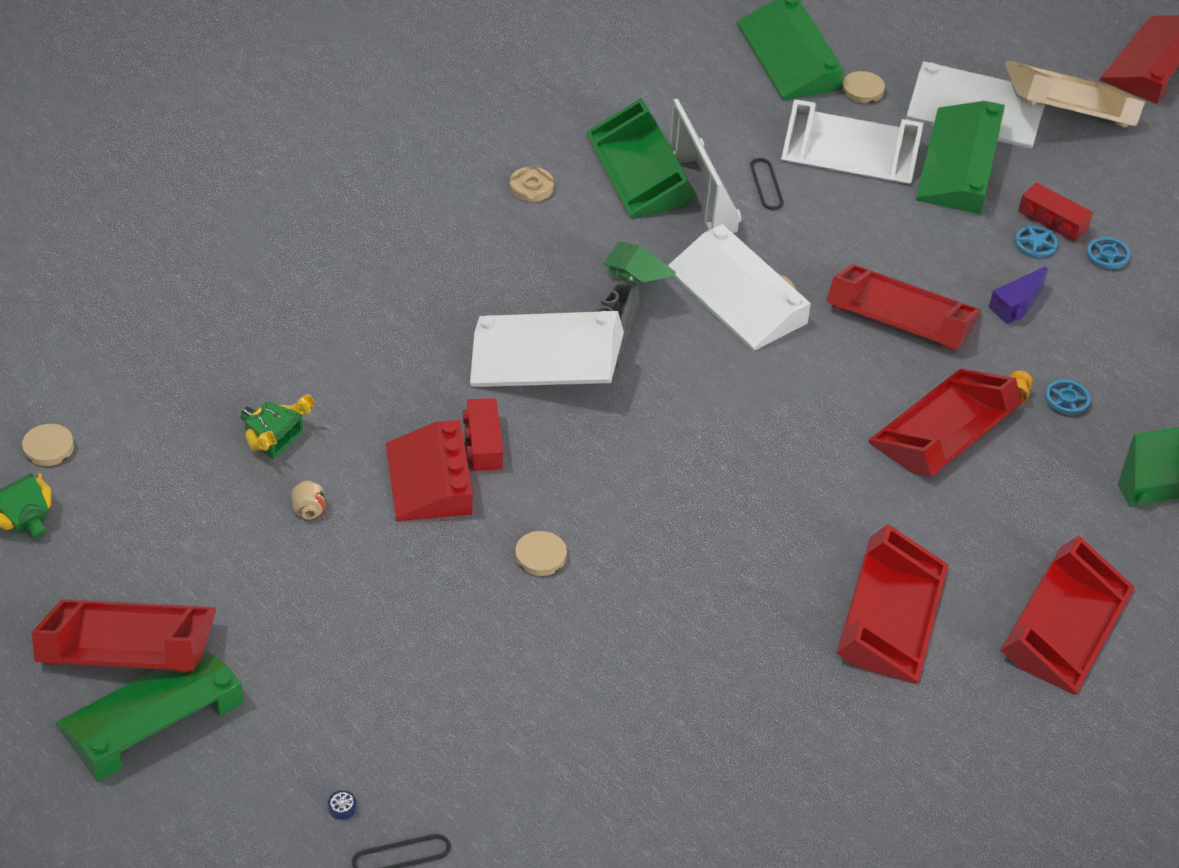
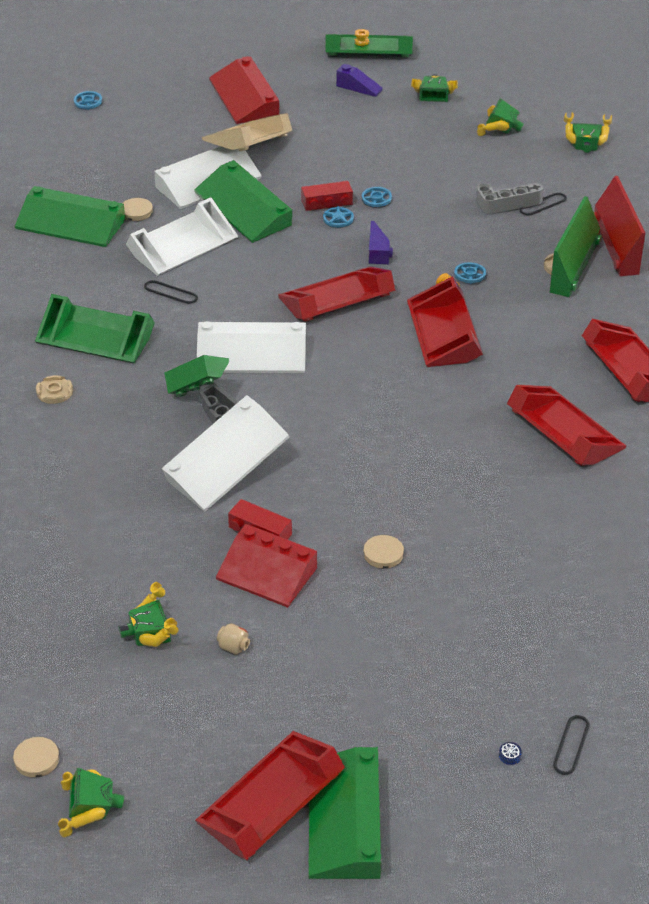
camera: 50 degrees left, 5 degrees down
(690, 148) = (128, 296): white slope -> none

